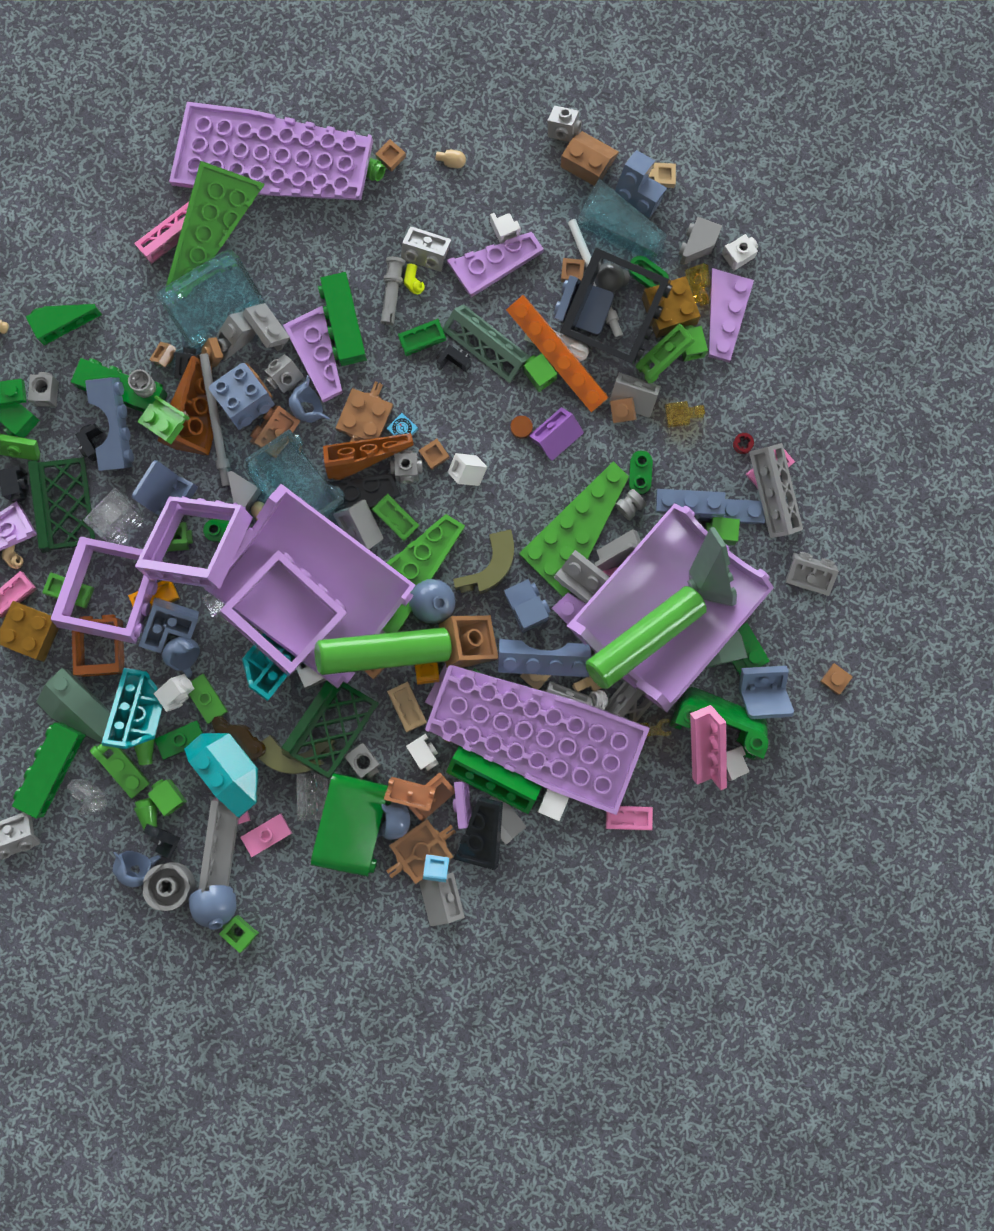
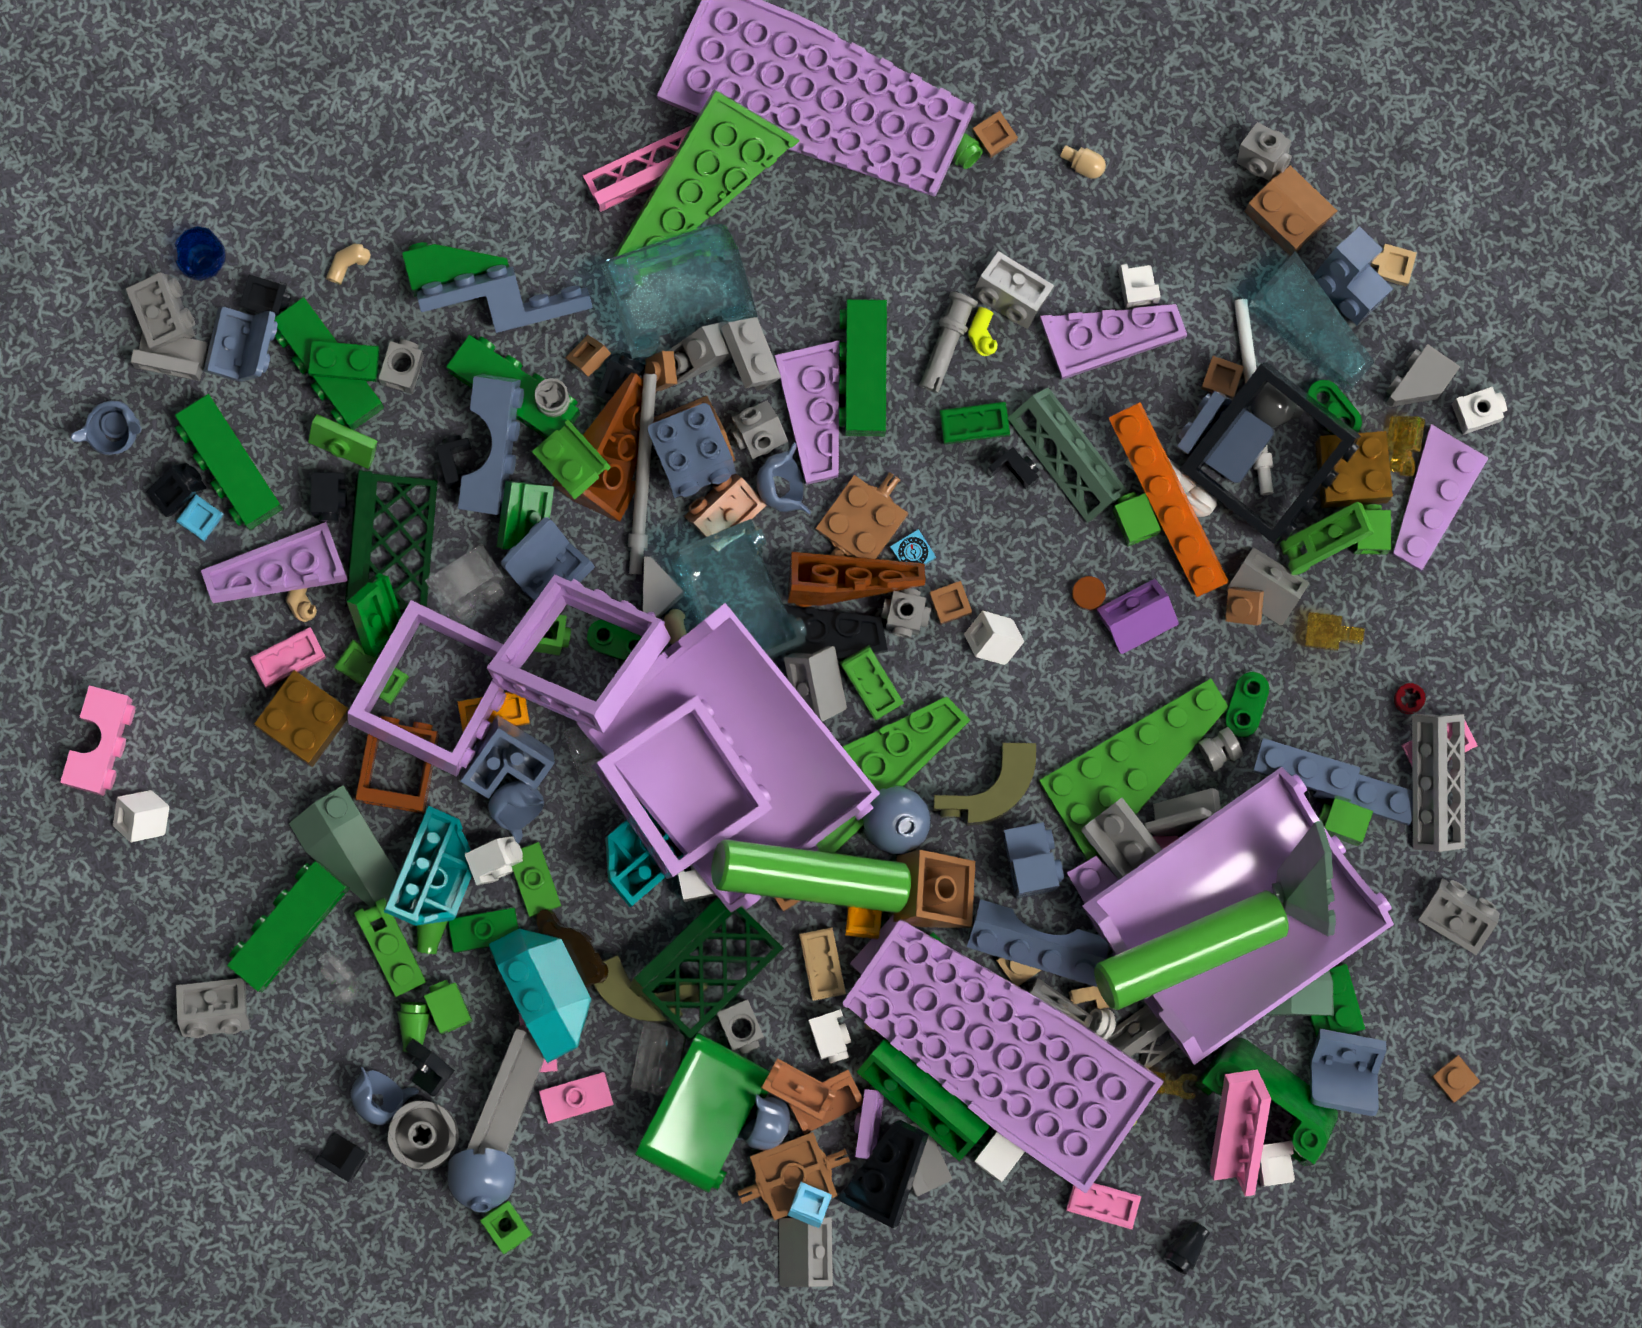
camera: 10 degrees right, 0 degrees up
(56, 550) = (375, 614): none -> green plate
(98, 329) = (503, 298): none -> sand blue bracket
(119, 915) = (342, 1157): none -> black panel
(139, 458) = (522, 508): none -> green plate
(690, 834) = (1186, 1248): none -> black cone

